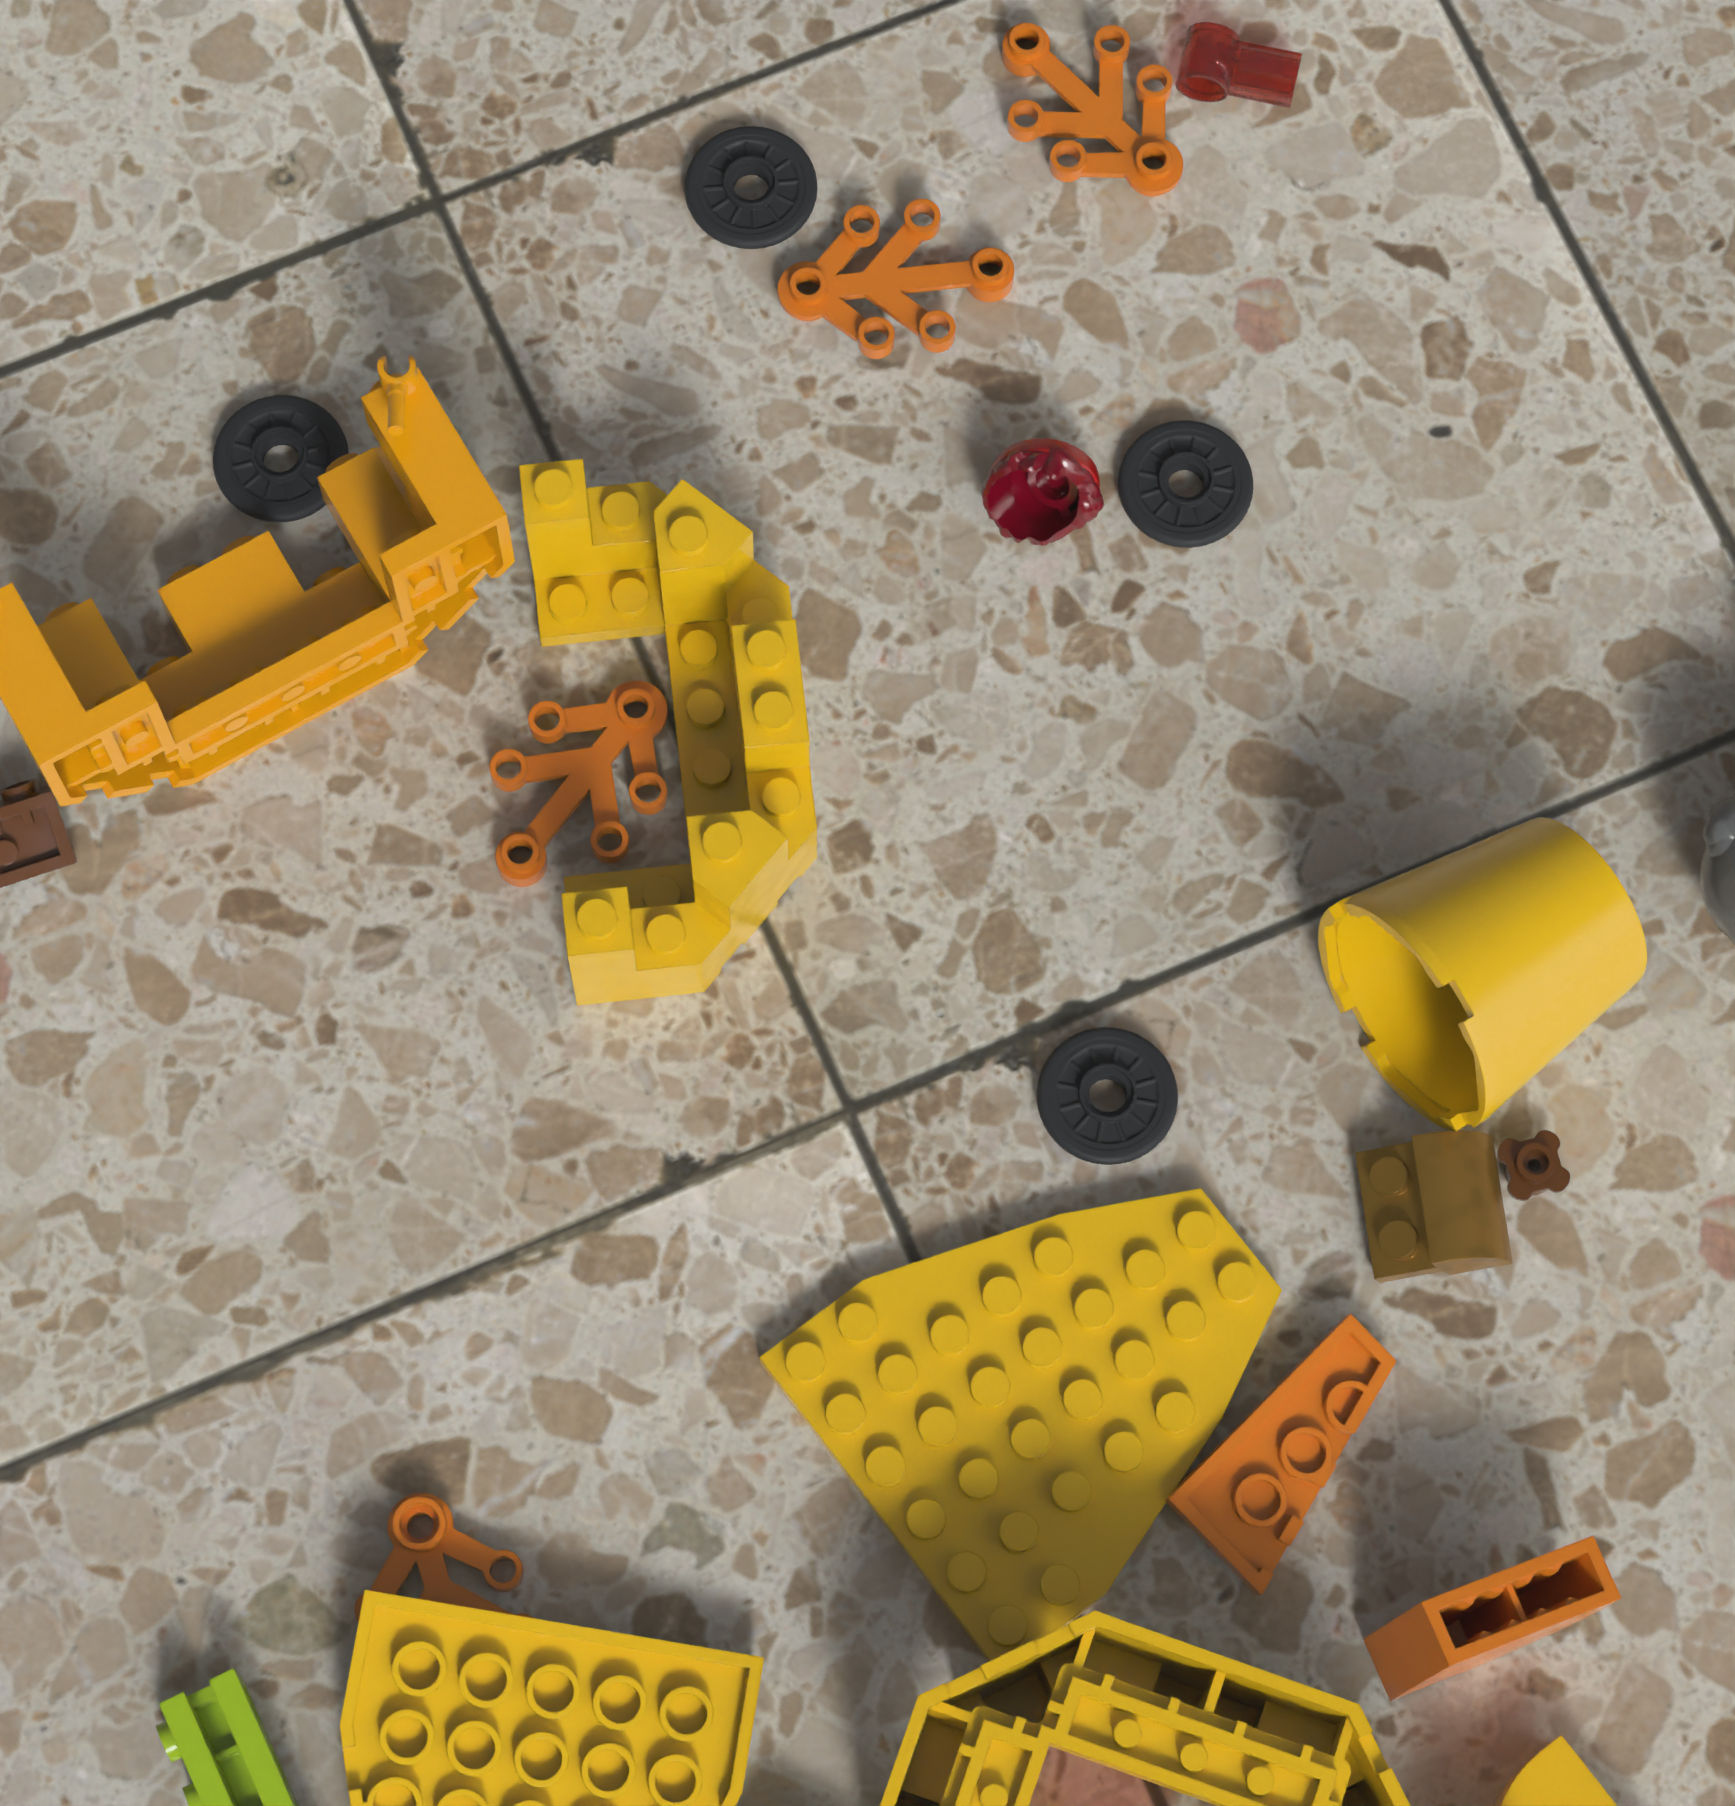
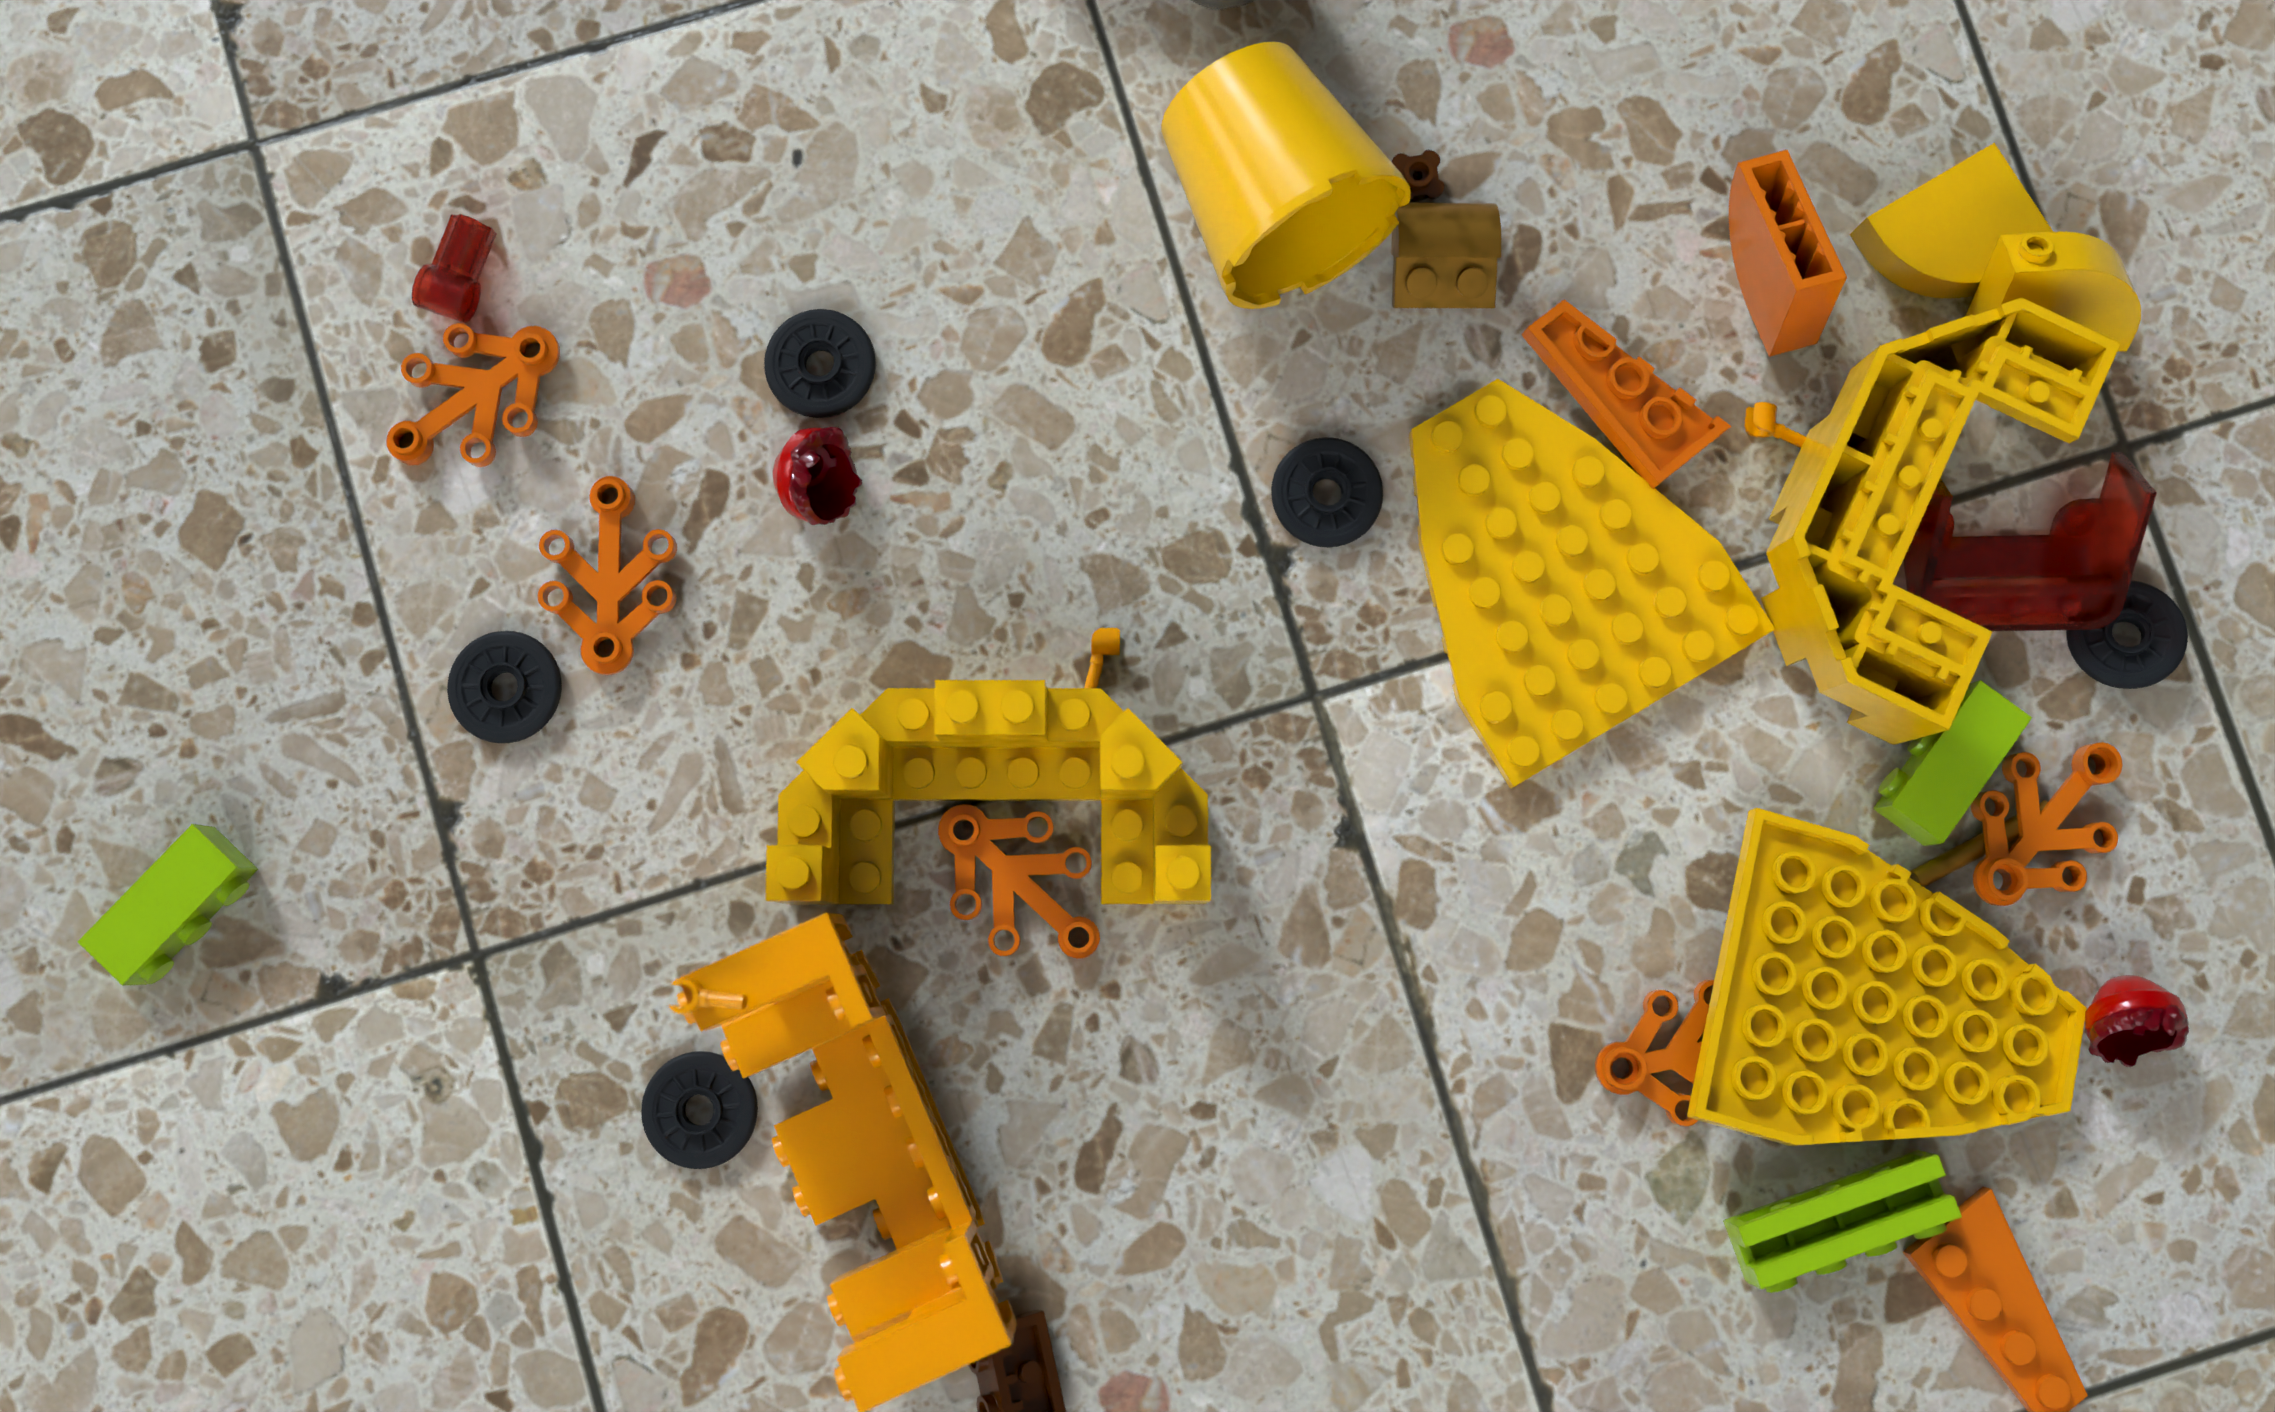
camera: 85 degrees left, 10 degrees up
(883, 845) = (1103, 642): none -> light orange hand
(1276, 1638) = (1762, 423): none -> light orange hand

